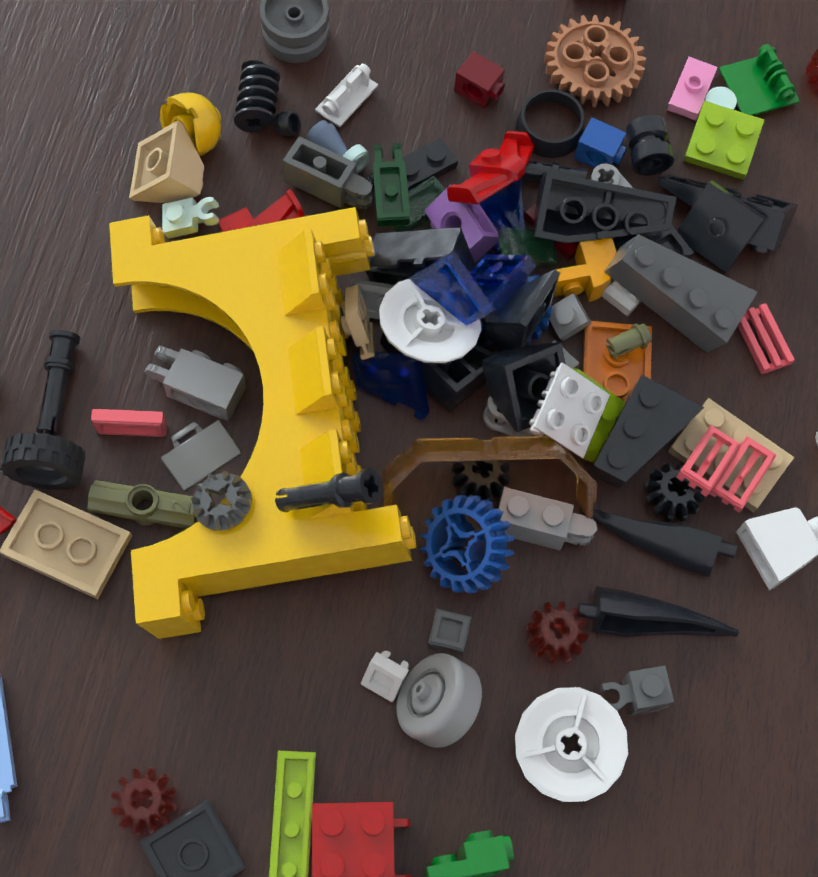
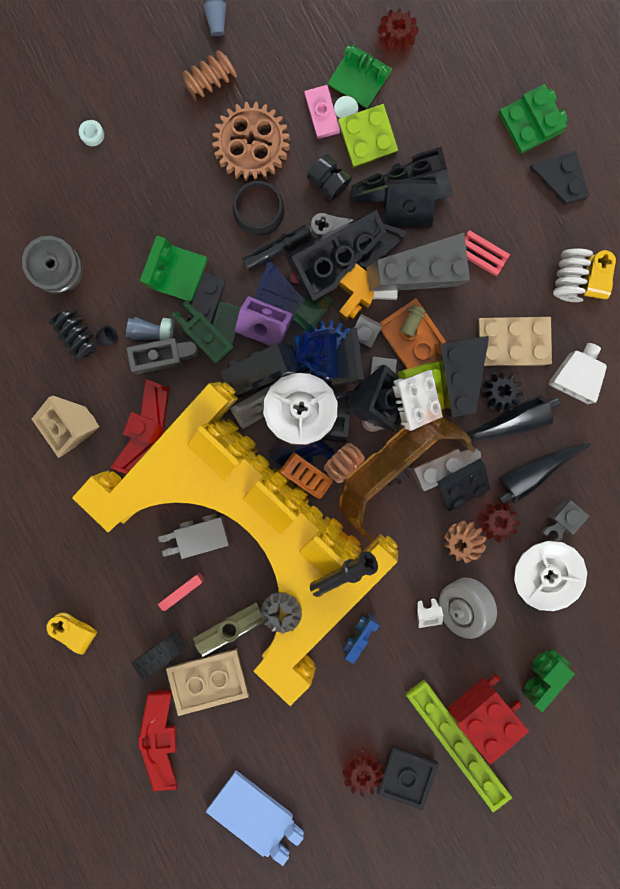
camera: 30 degrees left, 20 degrees up
(59, 367) = (114, 590): black pin -> none
(184, 216) = (102, 445): light aqua plate -> none
(198, 117) = (54, 381): yellow cylinder -> none
(200, 454) = (232, 573): light grey piece -> none
(284, 631) = (355, 645): none -> blue wing
(347, 95) = (125, 288): white hinge -> none
(356, 321) = (258, 436): tan plate -> none
(383, 433) = (318, 484): none -> orange slope
(410, 110) = (173, 270): none -> green bracket
(429, 421) = (344, 463): none -> nougat gear
(449, 534) = (418, 516): blue gear -> none
(449, 631) = (441, 563): dark grey tile -> none
(453, 288) = (301, 382): clear blue wing -> none
(479, 80) = (195, 213): dark red brick -> none
(494, 169) = (256, 274): red plate -> none
(498, 619) = (465, 541): none -> nougat gear
(548, 552) = (464, 485): none -> black plate
(600, 144) = (301, 201): blue brick -> none
(697, 479) = (512, 381): coral tile -> none
(728, 496) = (523, 353): coral tile -> none

